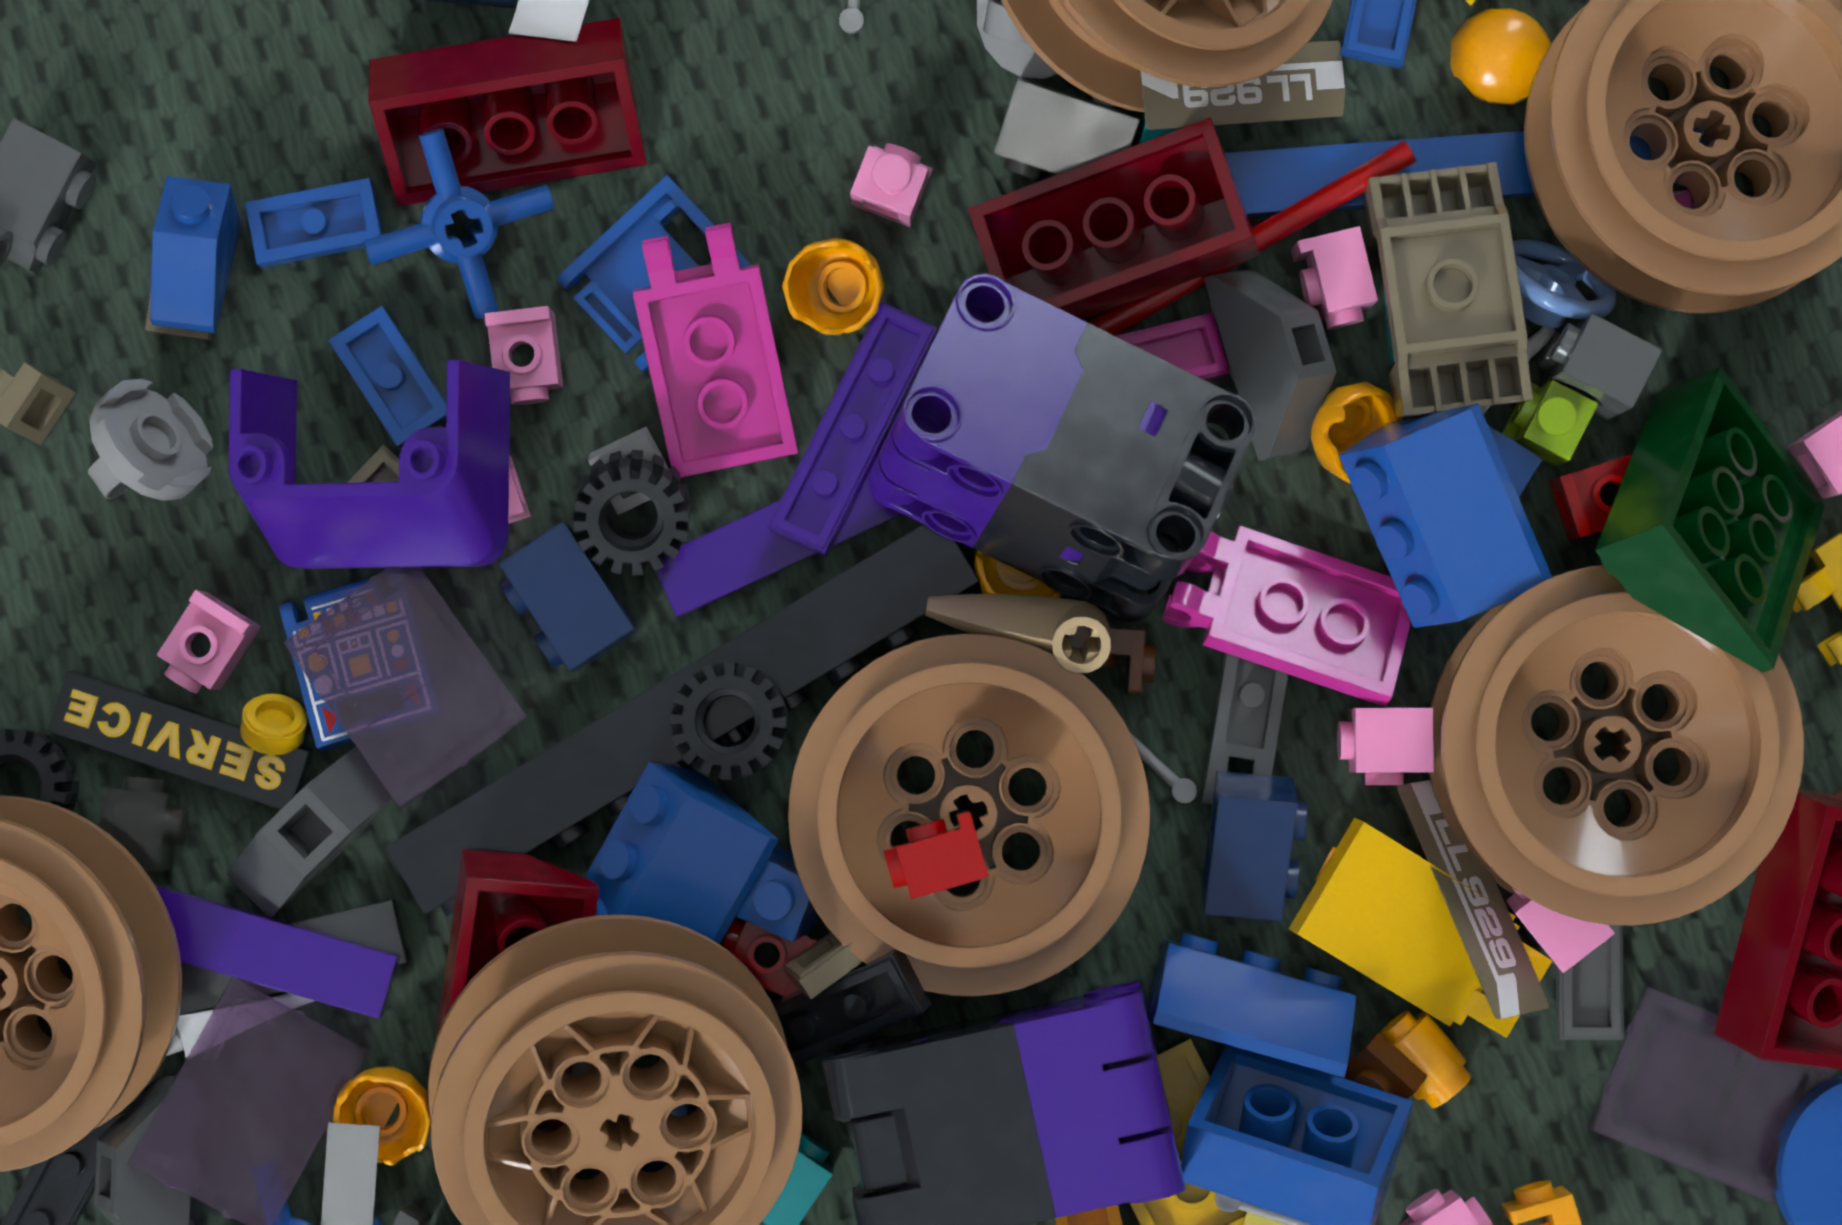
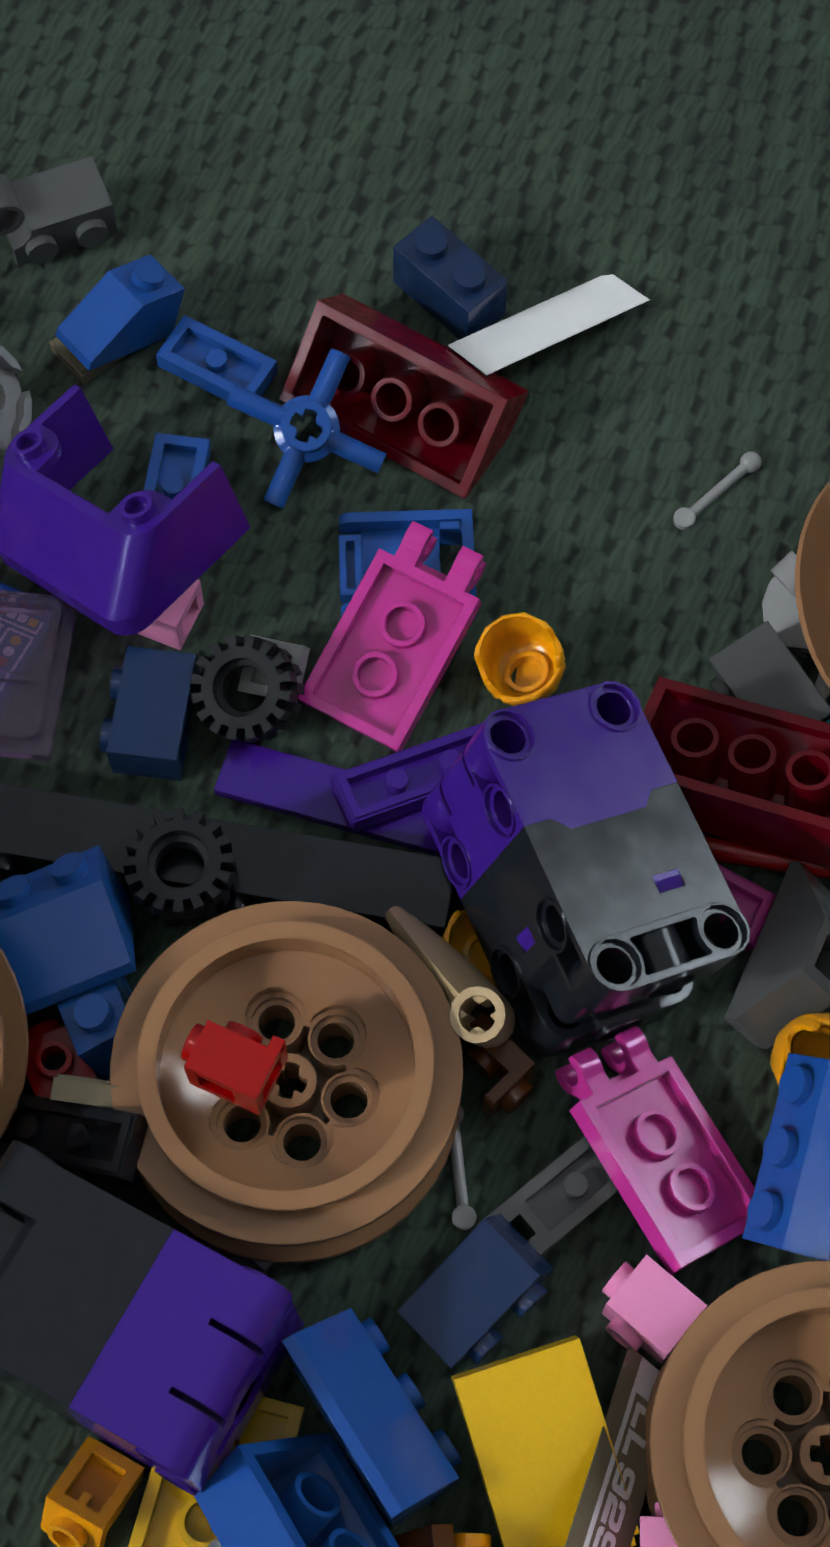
camera: 40 degrees right, 20 degrees down
(534, 328) = (276, 559): bright pink brick -> none
(890, 183) = (619, 628): bright pink brick -> none

